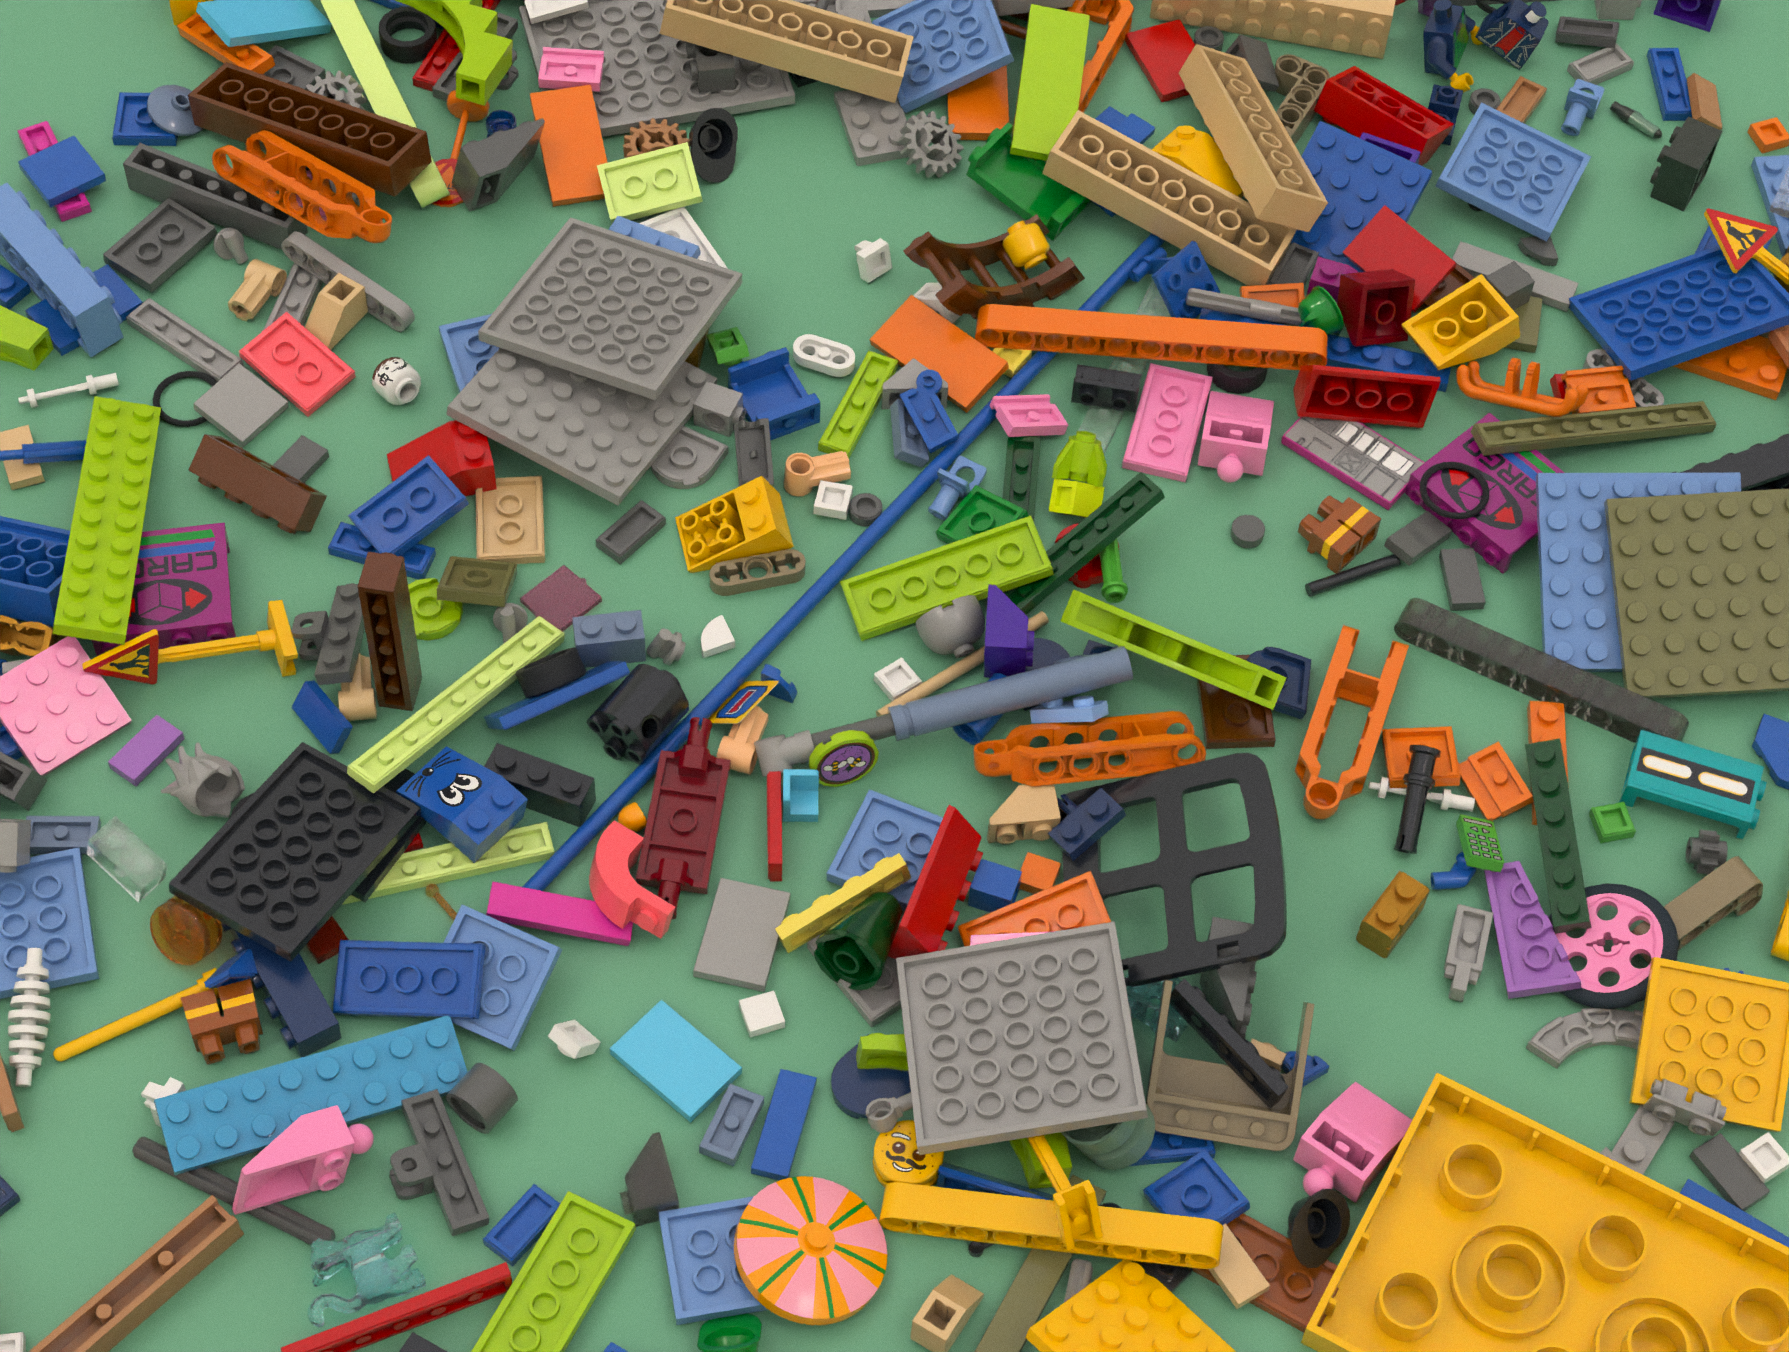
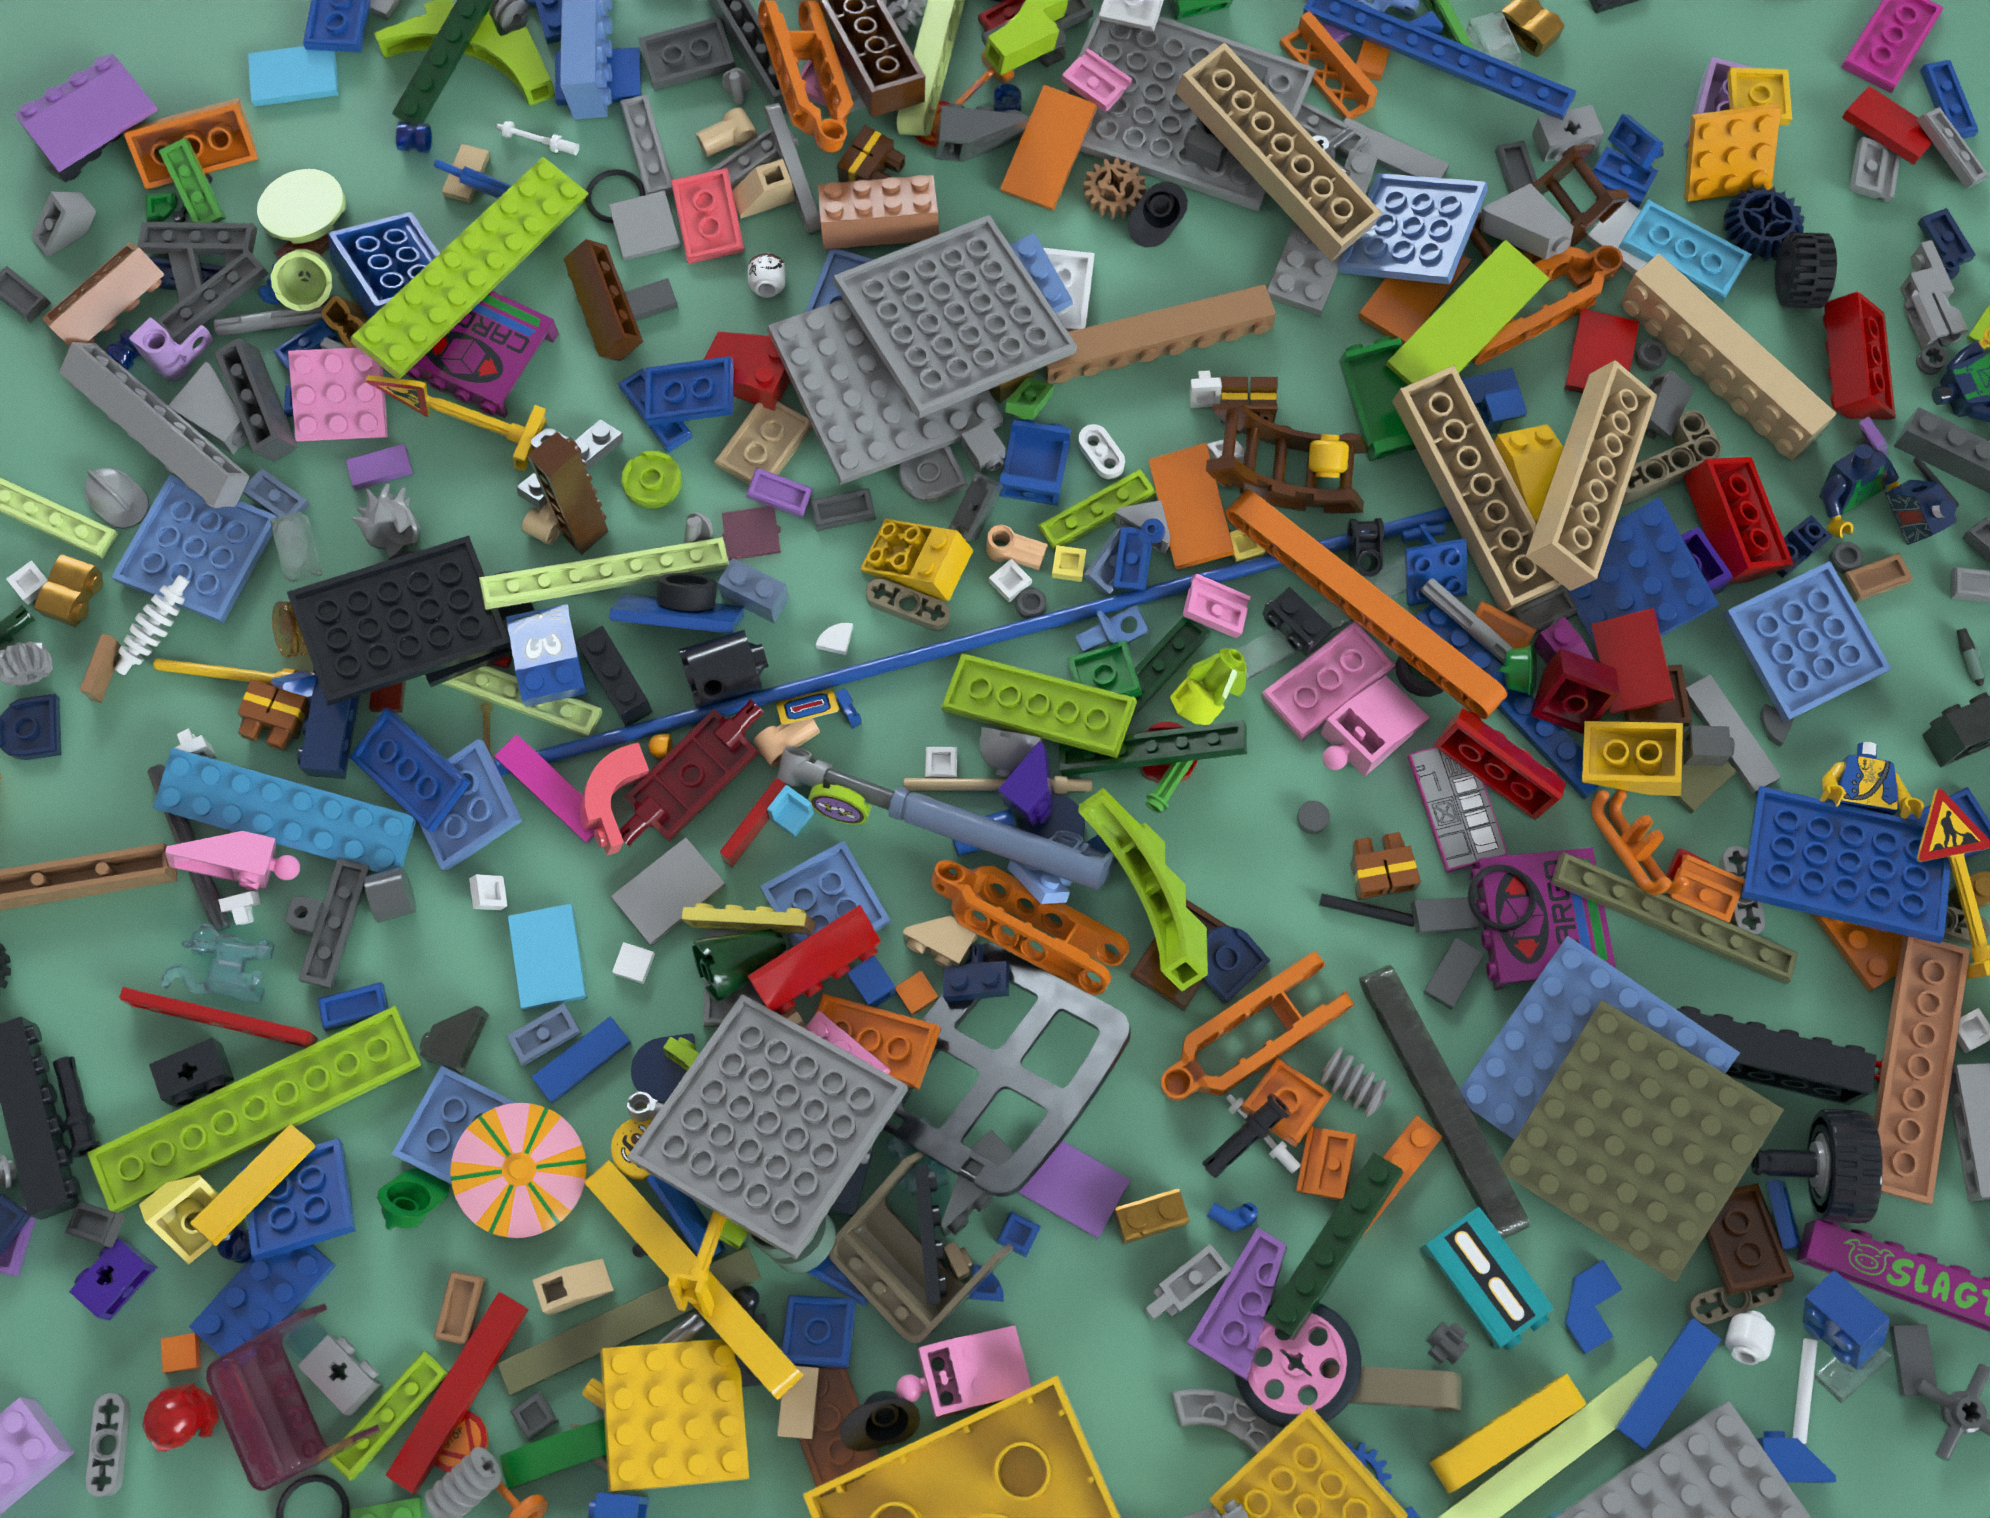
camera: 40 degrees right, 15 degrees up
(322, 717) = (509, 521): blue tile -> none
(336, 1206) = (241, 906): none -> white tile
(411, 240) = (869, 157): none -> reddish brown hips
(462, 272) = (878, 211): none -> nougat brick
(477, 581) = (696, 481): olive tile -> none
(561, 549) = (779, 492): none -> medium lavender tile
(650, 183) = (1079, 219): yellowish green plate -> none
(667, 646) = (793, 624): light grey plate -> none
(801, 232) = (1165, 333): none -> medium nougat brick
(872, 457) = (1069, 563): none -> light yellow plate
(902, 238) = (1260, 397): none -> reddish brown hips
(919, 133) = (1329, 303): light grey gear -> none
(1114, 295) = (1365, 544): none -> black piece
(1289, 1006) = (1018, 1233): none -> blue tile
(1316, 941) = (1076, 1189): none -> medium lavender tile
(1461, 703) = (1355, 1082): none -> light grey piece
(1480, 843) = (1268, 1207): bright green tile -> none
(1580, 105) = (1927, 614): medium blue bracket -> none
(1612, 822) = (1397, 1261): bright green tile -> none
(1649, 246) = (1869, 784): none -> torso

